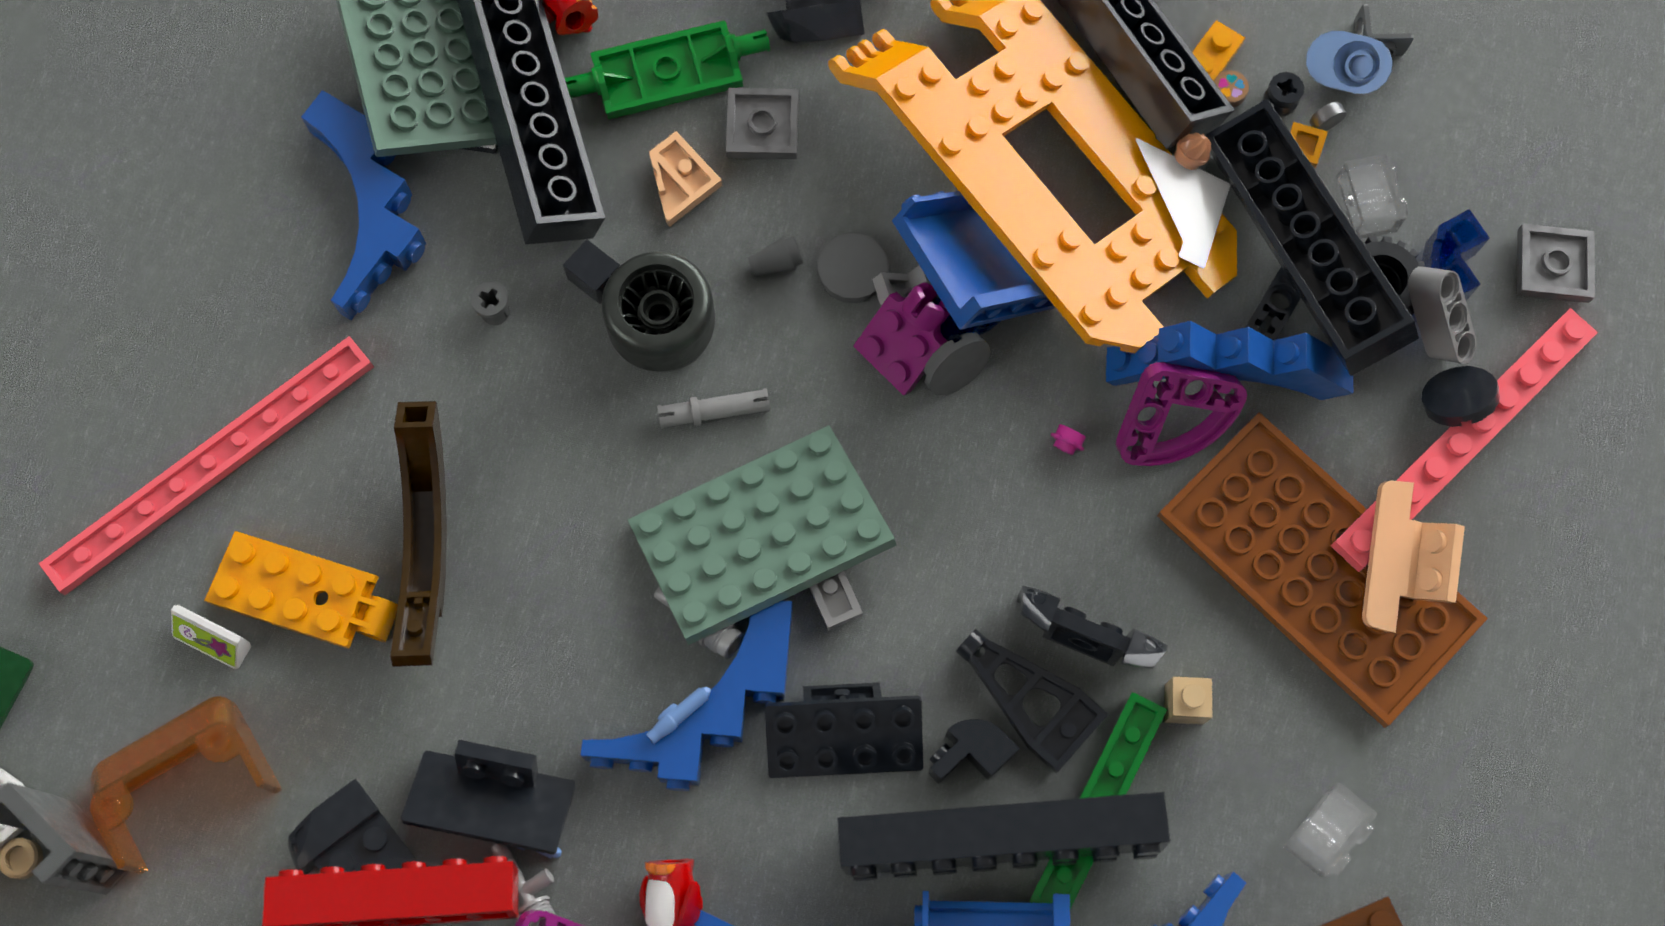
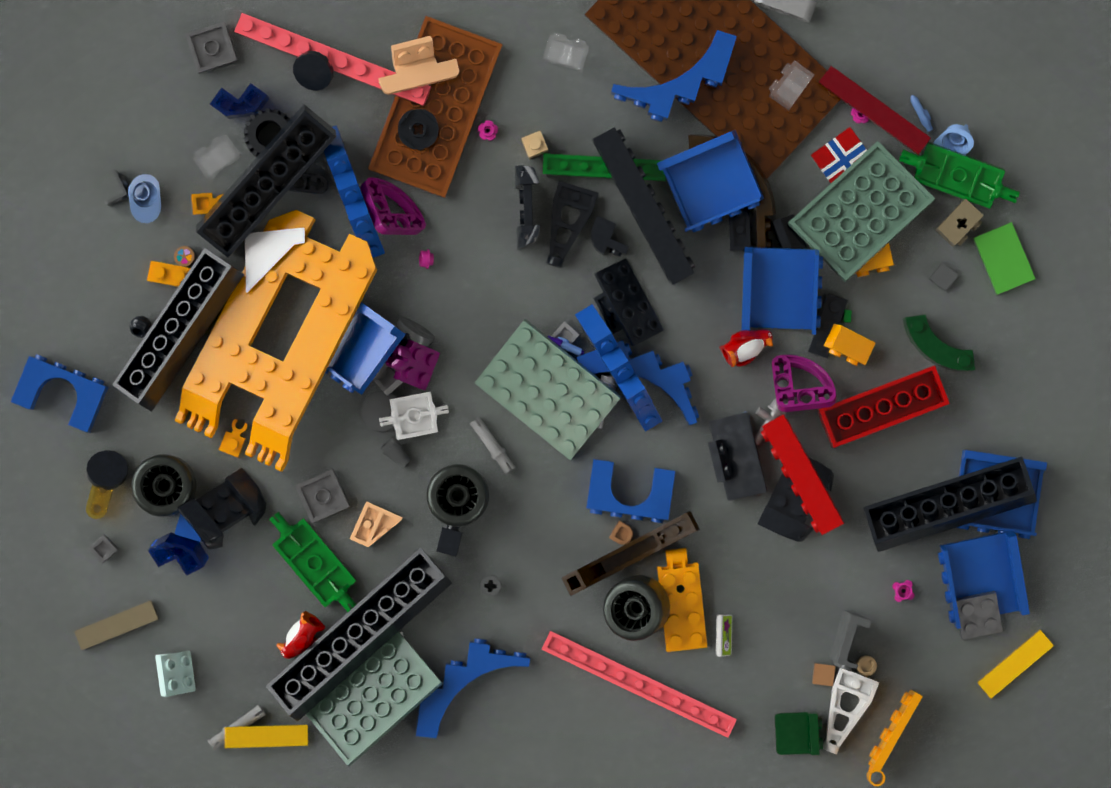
camera: 115 degrees left, 15 degrees up
(49, 774) = (823, 674): none -> medium nougat tile
(210, 727) = (767, 612): clear orange windscreen -> none
(325, 506) = (623, 614): none -> pearl dark grey wheel
(465, 549) = (622, 533): none -> medium nougat tile
(533, 542) = (655, 506): none -> blue arch
(676, 714) = (658, 386): medium blue piece -> none
(740, 658) = (619, 367): none -> blue arch
(820, 594) = (565, 345): none -> medium blue piece
(821, 306) = (413, 415): none -> white plate
(912, 31) = (233, 442): none -> light orange plate
(1193, 151) = (239, 259): nougat plate -> none
(1241, 645) = (487, 135): none -> dark pink plate
(1280, 100) = (179, 227): black wheel -> none
(1301, 496) = (406, 130): none -> black plate
(1328, 116) = (180, 197): flat silver tile -> none
(1442, 314) = (277, 96): light grey beam -> none

